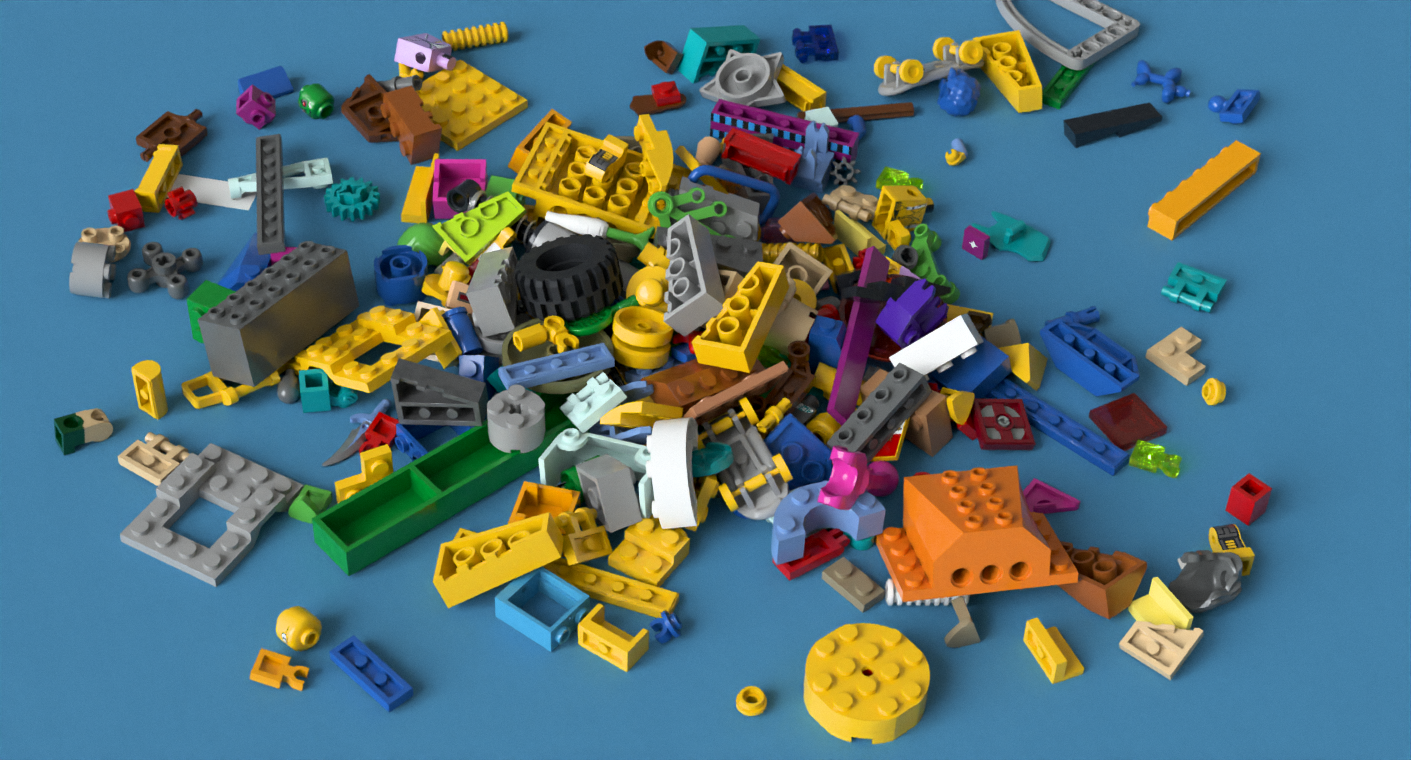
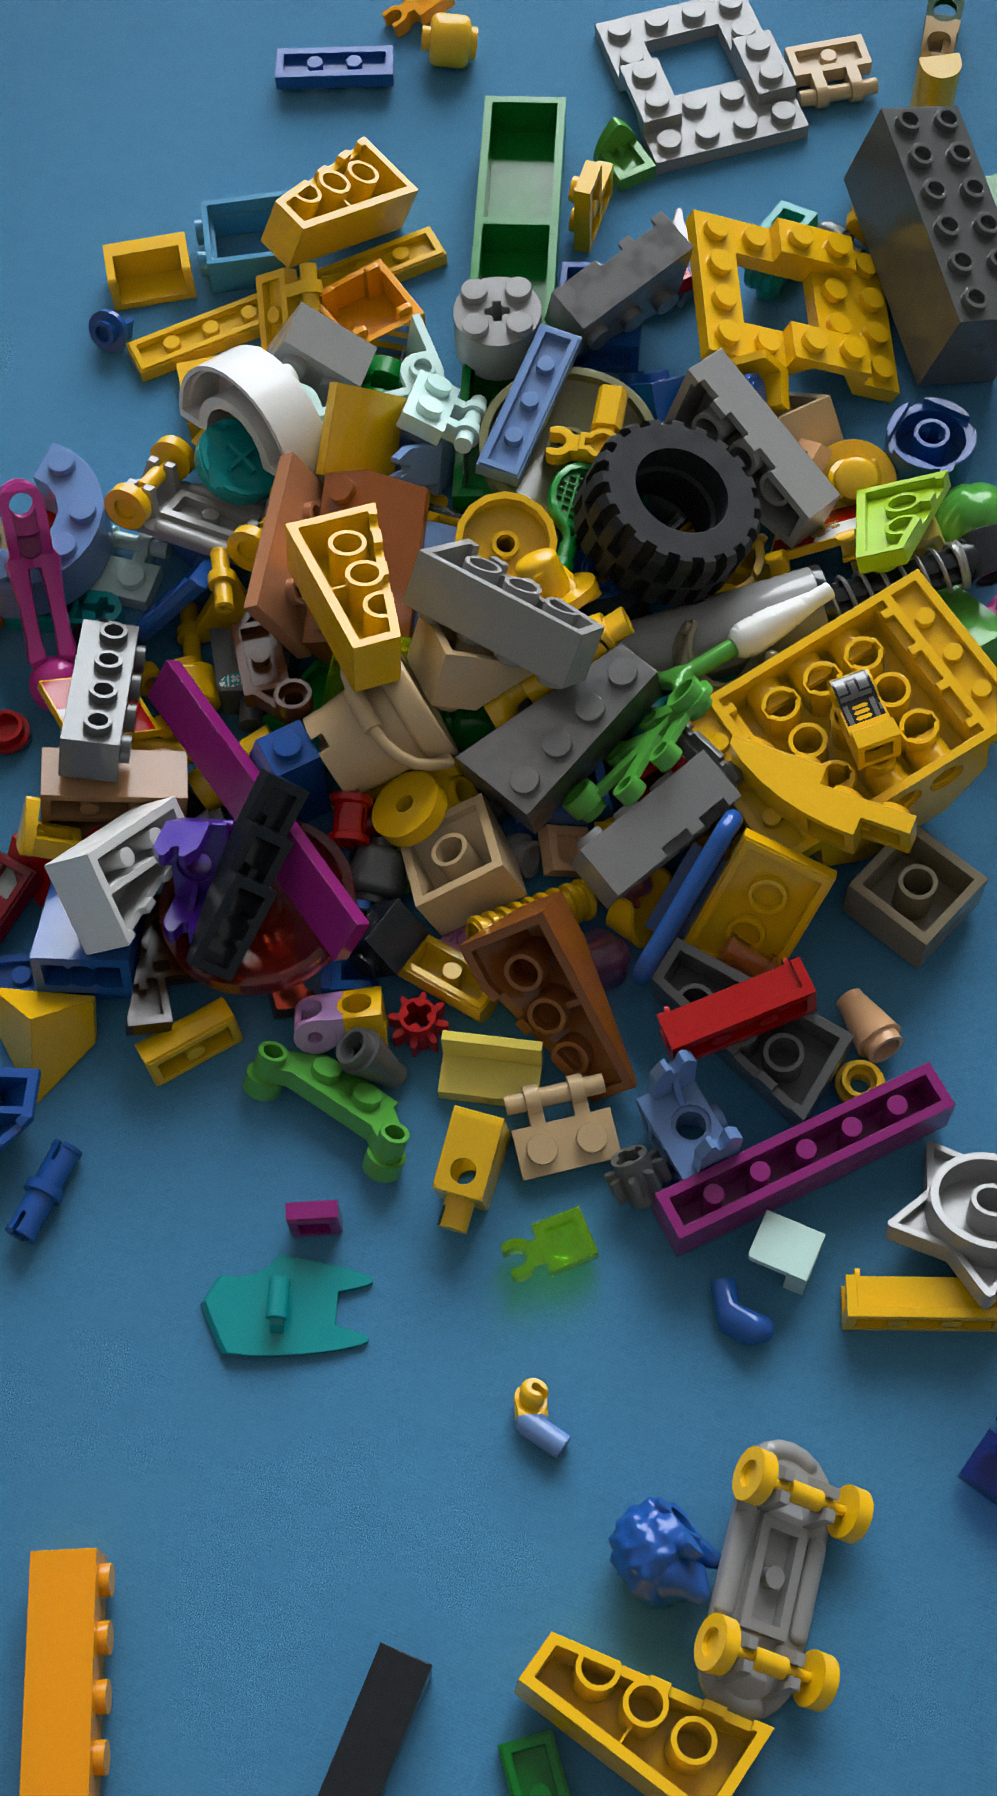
camera: 140 degrees right, 20 degrees up
(871, 112) = (779, 1357): reddish brown axle -> none
(897, 234) = (426, 1117): yellow plate -> none
(1003, 334) = (104, 1059): dark tan tile -> none

